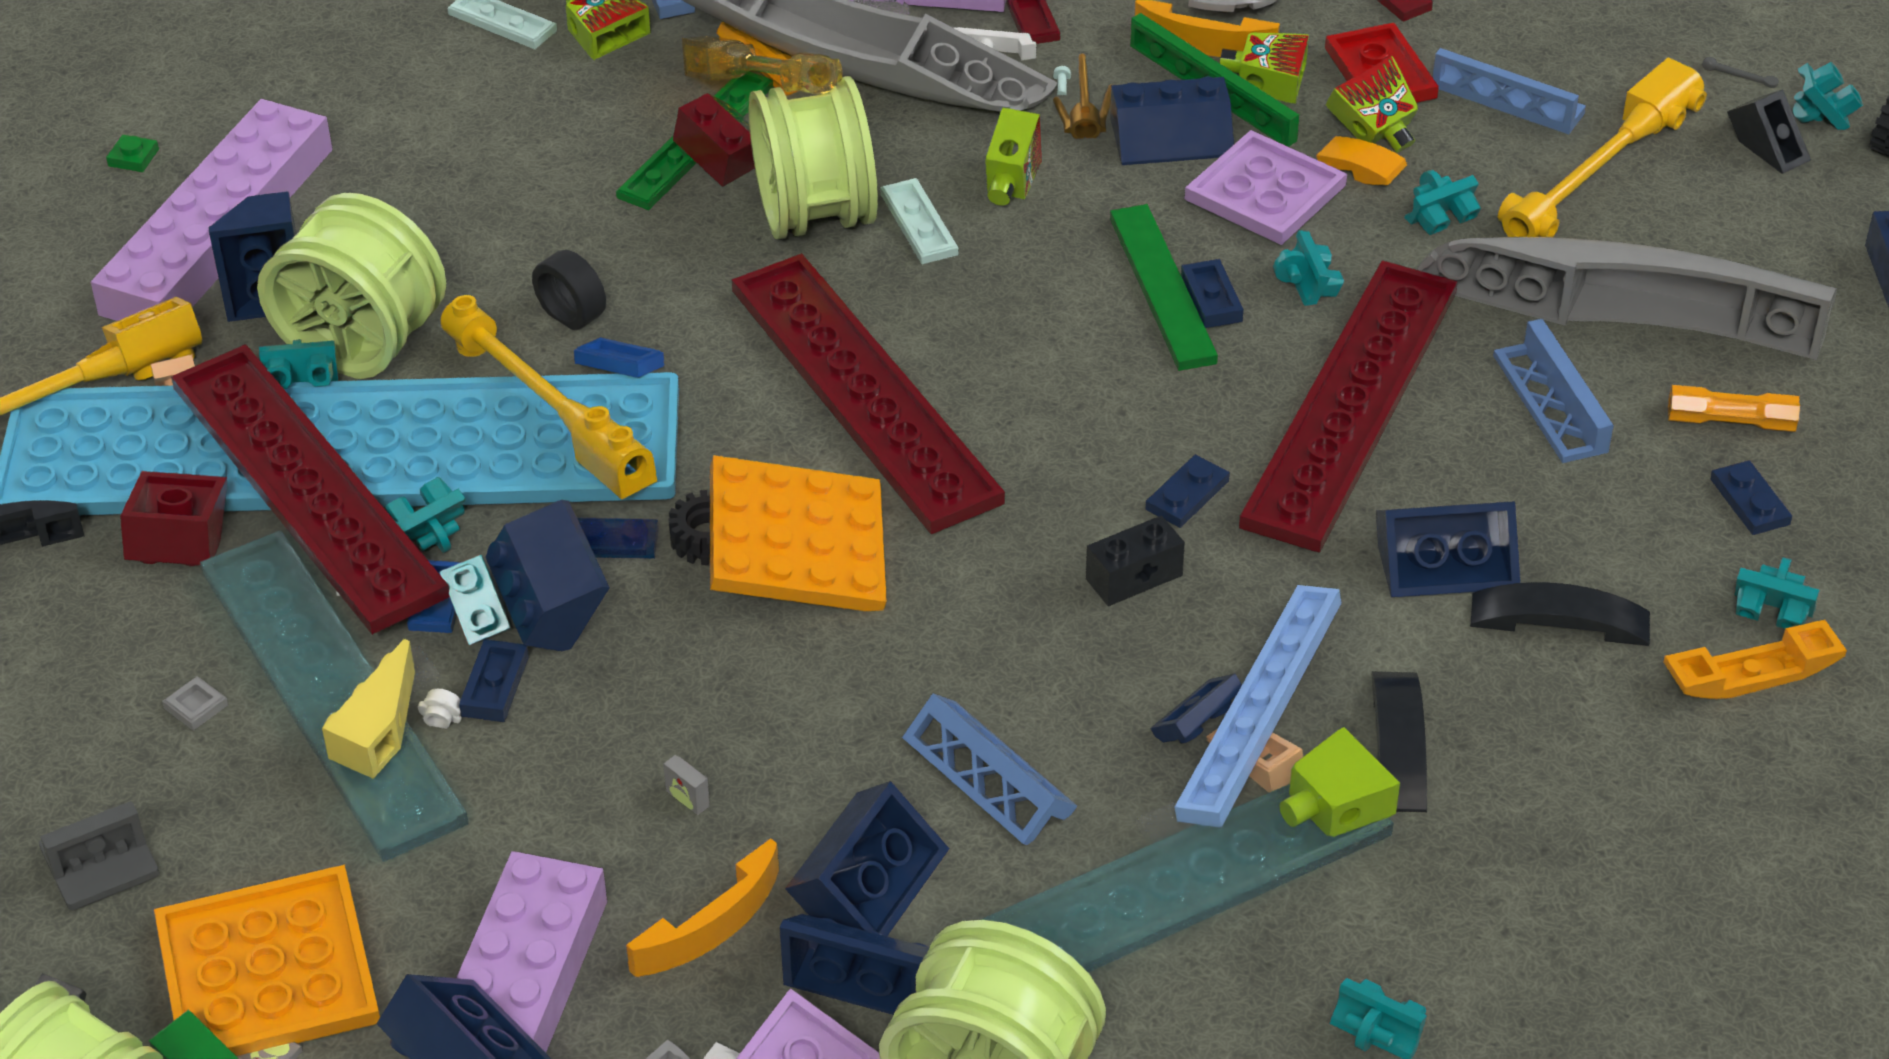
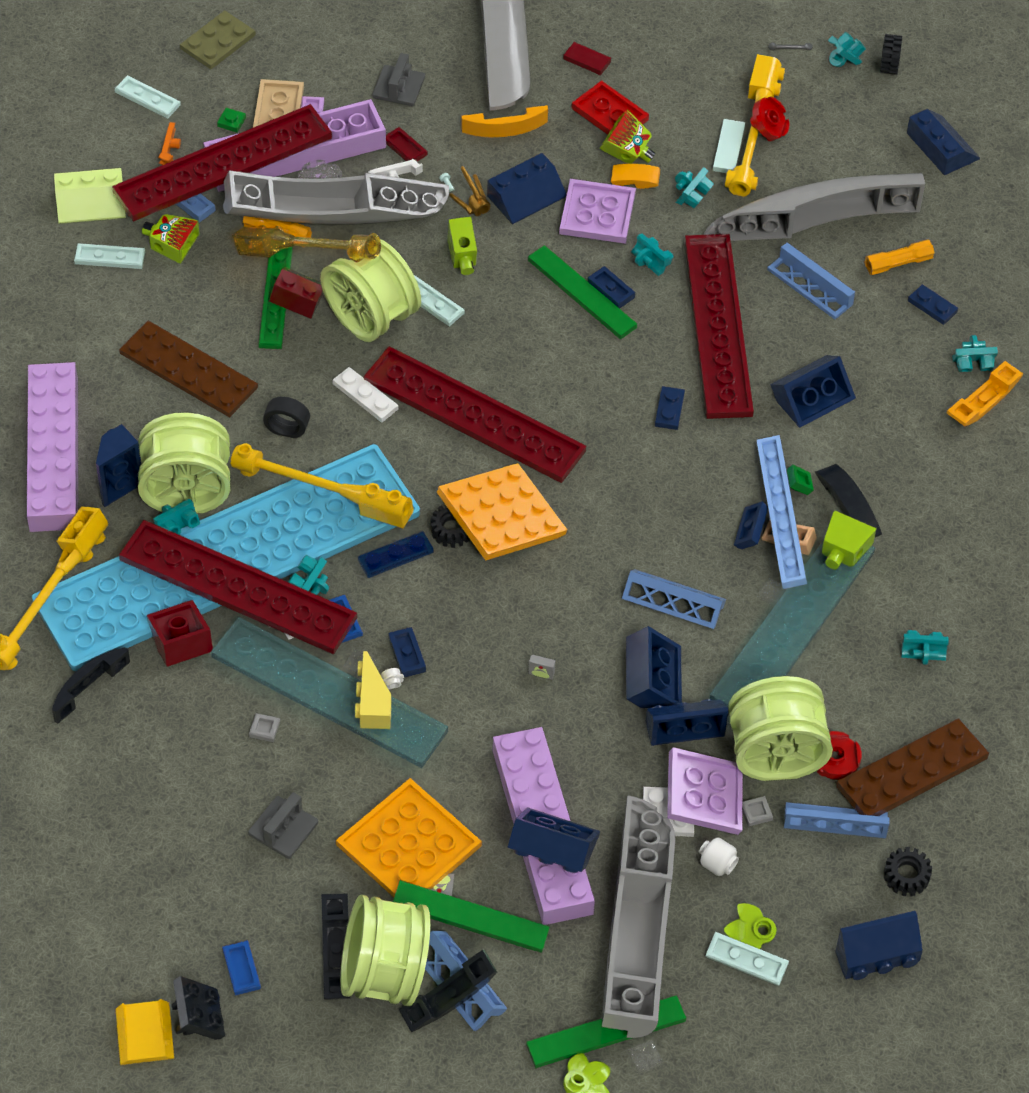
camera: 30 degrees left, 10 degrees up
(164, 370) = (108, 552): light nougat plate -> none
(475, 600) = (371, 614): hips -> none
(493, 189) = (188, 368): none -> reddish brown plate
(547, 576) = (400, 585): dark blue slope -> none
(619, 357) = (337, 446): blue tile -> none
(668, 947) = (592, 749): light orange slope -> none
(721, 308) = (365, 394): none -> white plate
(1134, 560) = (674, 458): black brick -> none
(1190, 63) = (524, 151): green tile -> none
(1271, 63) = (553, 132): torso -> none
(1331, 671) = (800, 480): none -> green plate
(1507, 91) = (684, 105): medium blue fence -> none
(1546, 166) = (728, 145): none -> light aqua tile
(1561, 607) = (880, 403): black slope -> none
(1616, 150) = (770, 126): none -> red plate
(1770, 131) = (827, 80): black slope -> none

